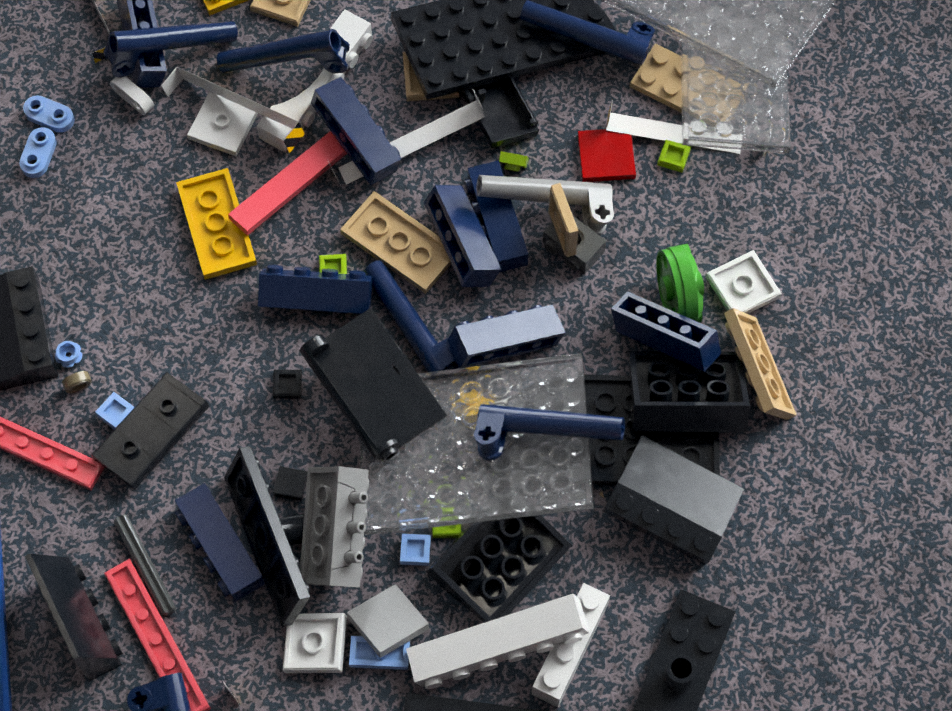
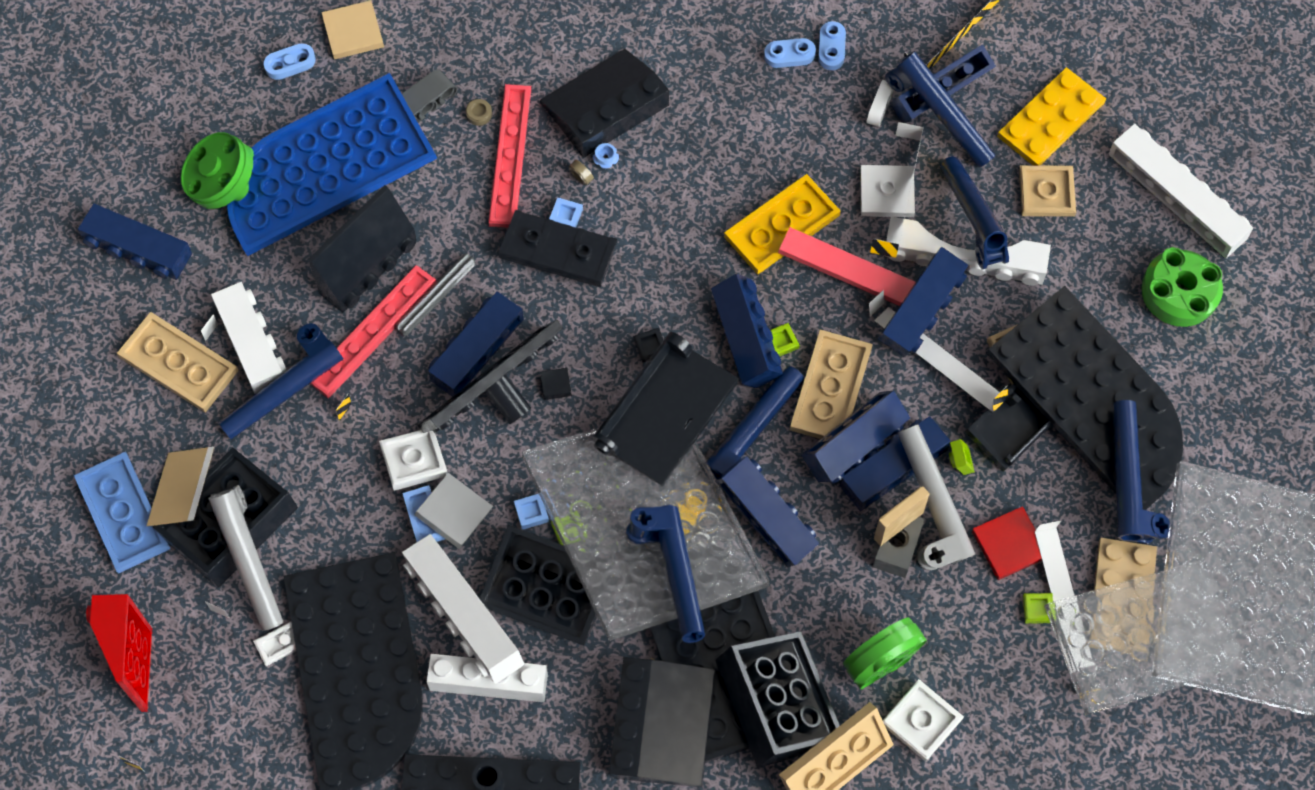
camera: 70 degrees right, 0 degrees up
(334, 526) = (515, 428): light grey piece -> none
(666, 331) = (829, 655): dark blue brick -> none

